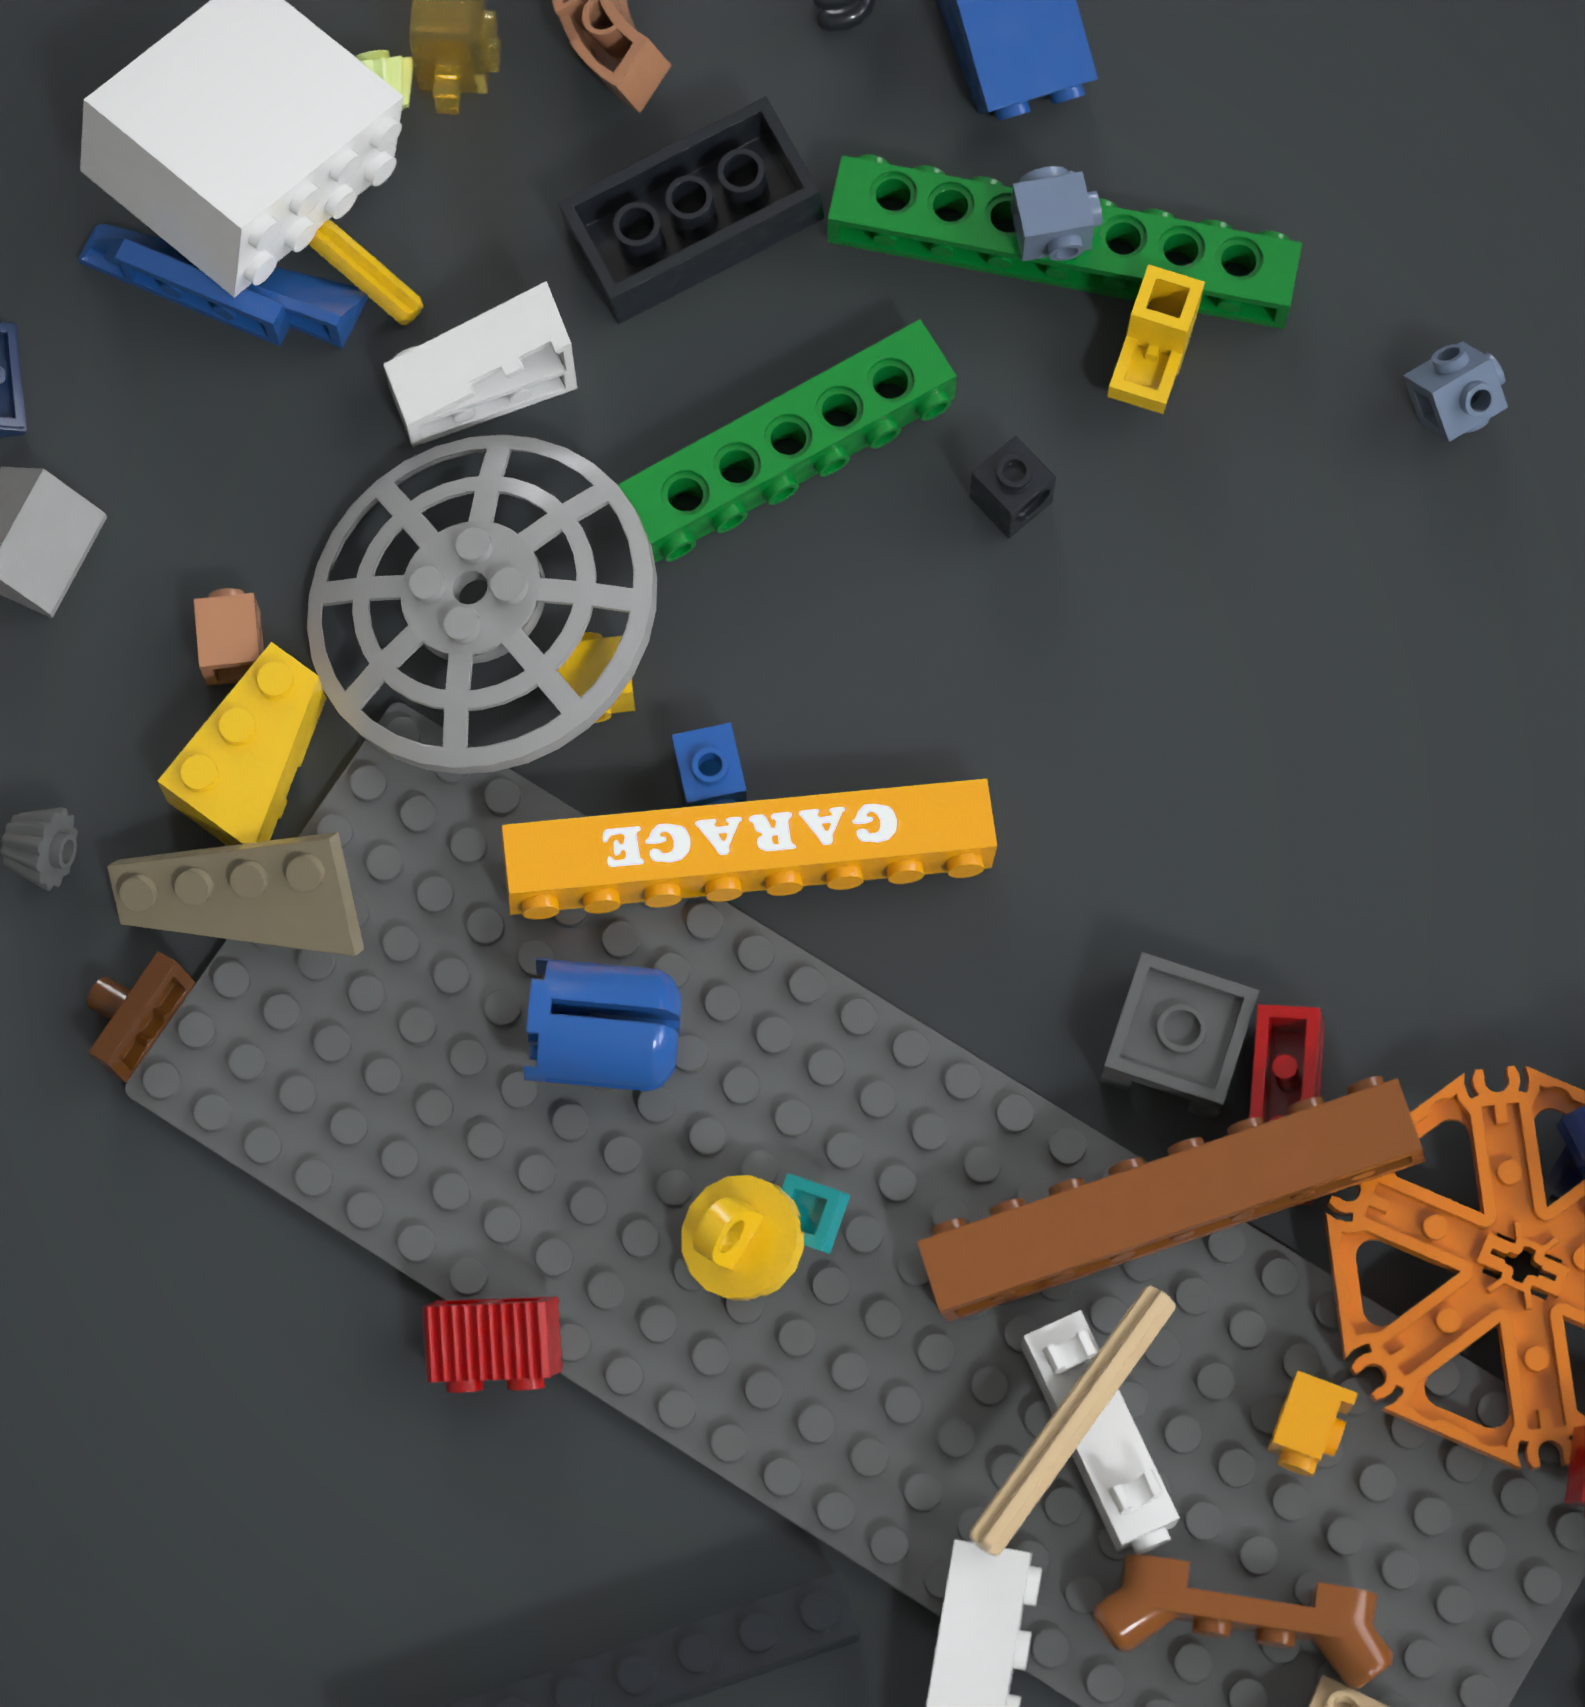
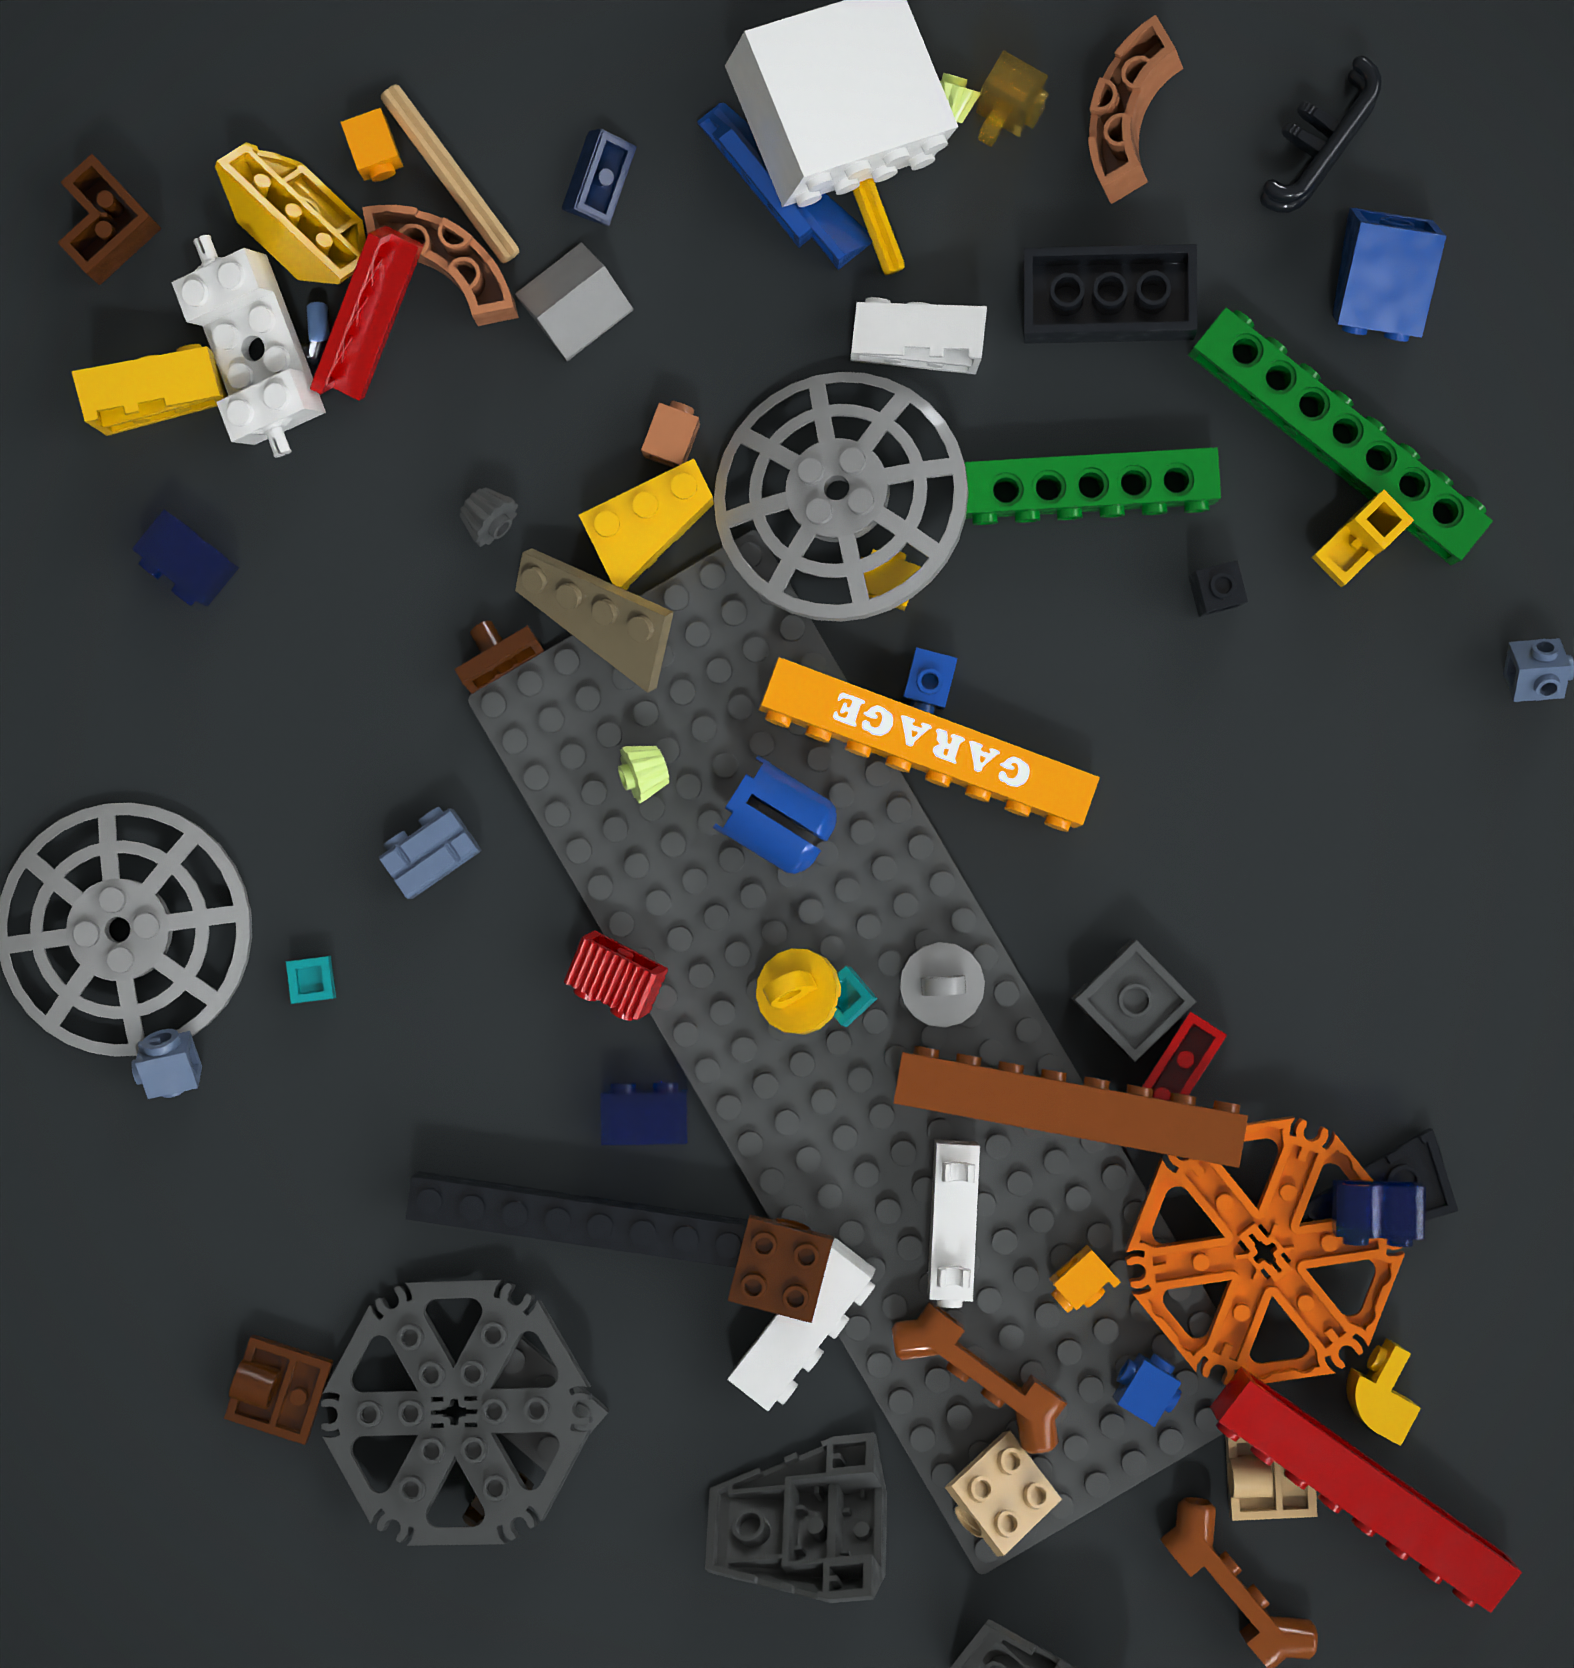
camera: 30 degrees right, 15 degrees up
(87, 1556) = (310, 979): none -> teal plate
(167, 1308) = (429, 852): none -> sand blue brick
(398, 1059) = (642, 771): none -> yellowish green piece
(623, 1506) = (644, 1115): none -> clear blue brick
(903, 1601) = (781, 1267): none -> reddish brown plate
(925, 1139) = (942, 984): none -> light grey tile
(1054, 214) = (1341, 423): sand blue brick -> none
(1071, 1421) = (938, 1213): tan axle -> none
(1470, 1520) = (1147, 1387): none -> blue brick

